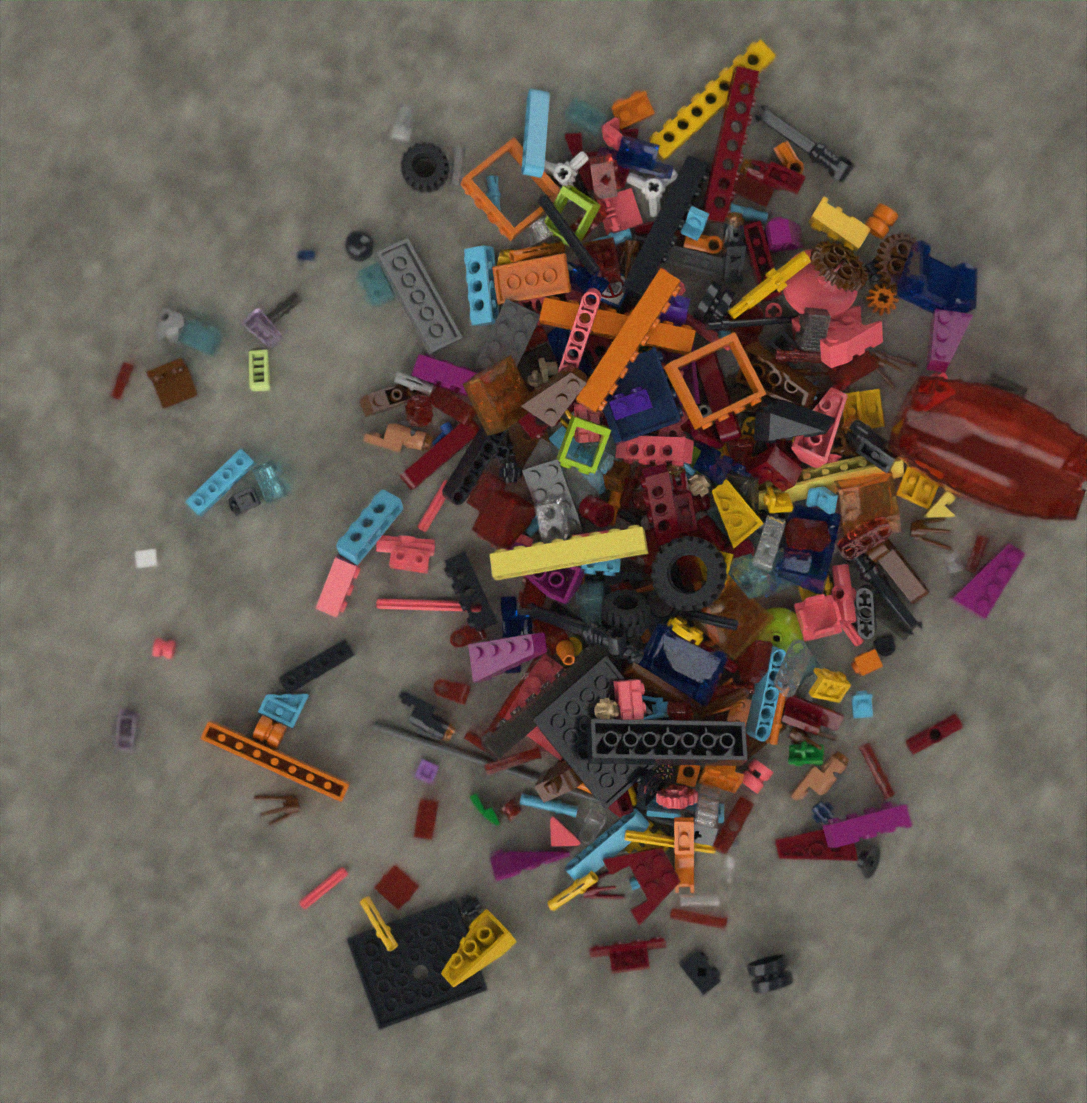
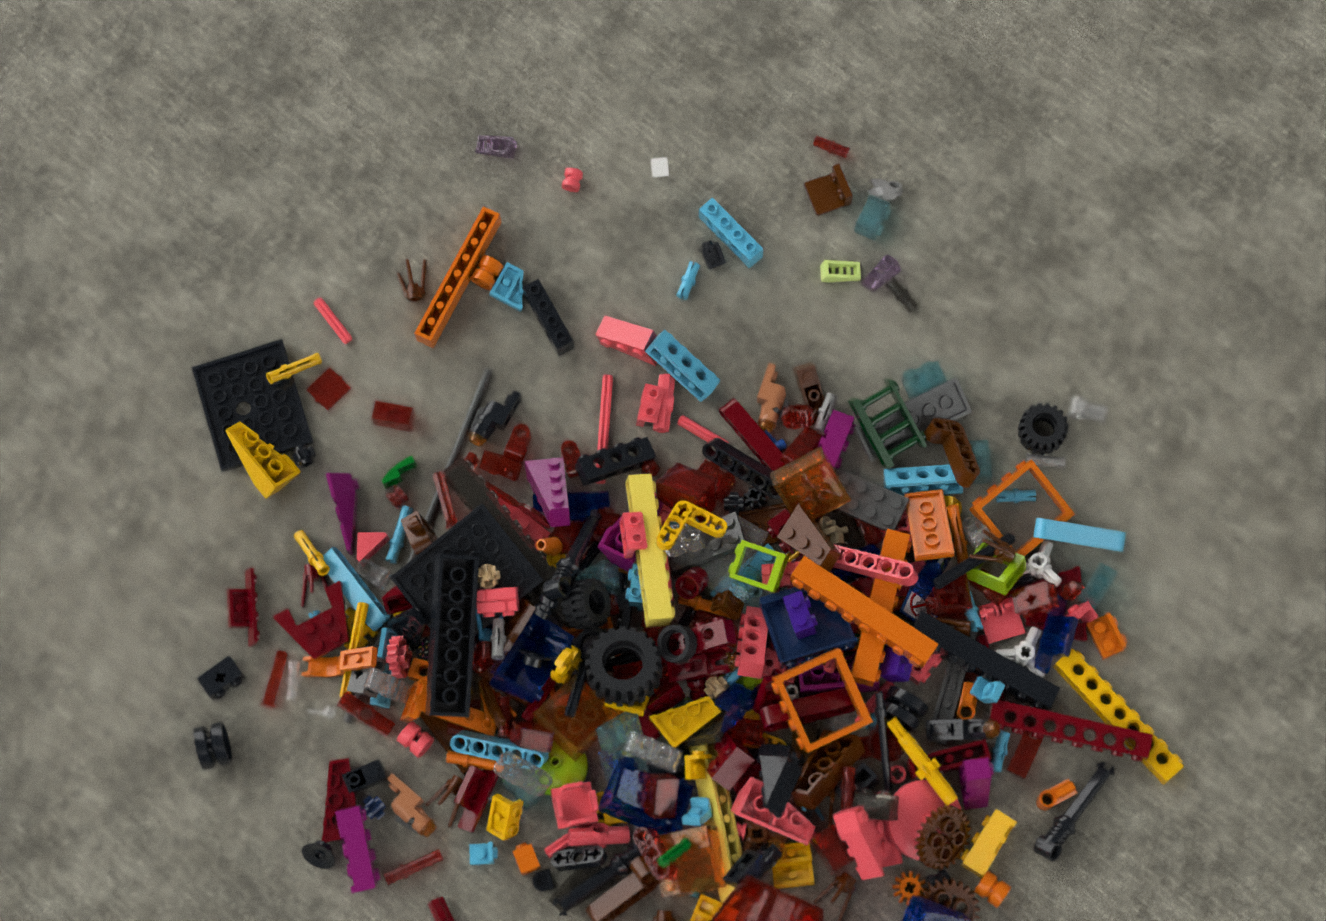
camera: 95 degrees right, 15 degrees down
(271, 482) = (730, 279): clear light blue brick -> none
(272, 525) = (688, 280): none -> medium azure pin
(306, 255) = (953, 317): dark blue tile -> none
(359, 245) = (964, 366): black hair -> none
(427, 771) = (440, 419): medium lavender tile -> none
(429, 338) = (868, 423): none -> dark green fence
(451, 251) = (957, 449): none -> reddish brown beam
(460, 231) = (982, 455): none -> clear light blue brick
(473, 709) = (499, 464): none -> clear red slope
(475, 557) = (650, 468): none -> clear red plate
(536, 514) = (689, 517): none -> yellow beam
(554, 569) = (632, 533): none -> coral bracket
(560, 207) = (1002, 551): none -> reddish brown plant
(590, 142) = (1072, 590): none -> clear red plate
(661, 509) = (690, 643): none -> black tyre
(664, 698) = (498, 639): none -> light grey pin
(679, 662) = (533, 658): none -> black piece
(773, 175) = (1039, 774): dark red plate -> none
(794, 822) = (365, 776): none -> black slope
(805, 754) = (434, 789): green hips -> none
(867, 518) = (674, 853): none -> green axle

